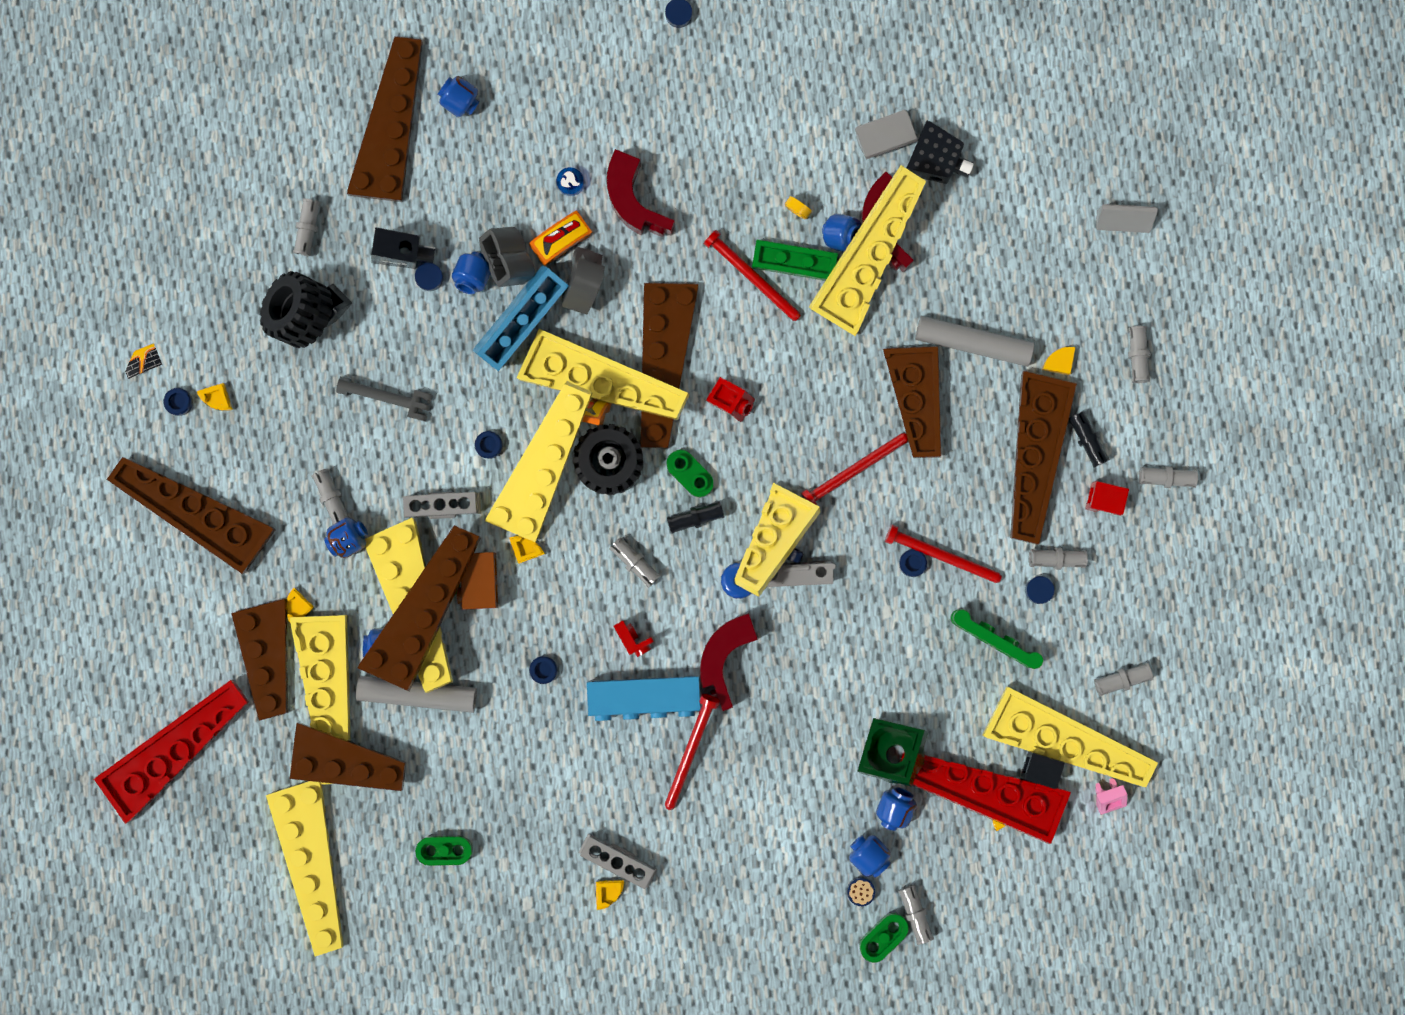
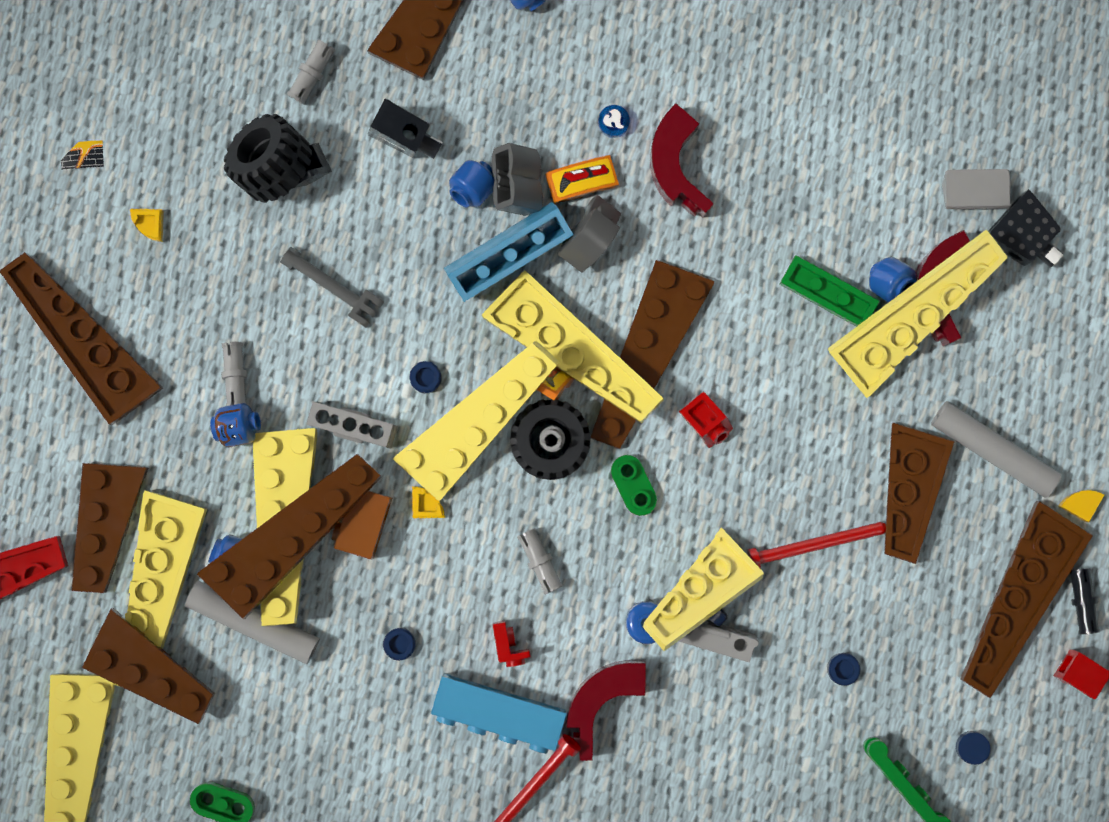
camera: 20 degrees right, 0 degrees up
(178, 401) = (106, 213): dark blue tile -> none
(297, 605) = (157, 479): yellow tile -> none
(428, 277) = (424, 171): dark blue tile -> none
(695, 517) = (623, 535): black pin -> none
(714, 241) = (776, 292): red bar -> none
(798, 208) = (852, 236): yellow tile -> none
(940, 554) = (833, 631): red bar -> none
(1057, 558) = (1005, 720): light grey pin -> none

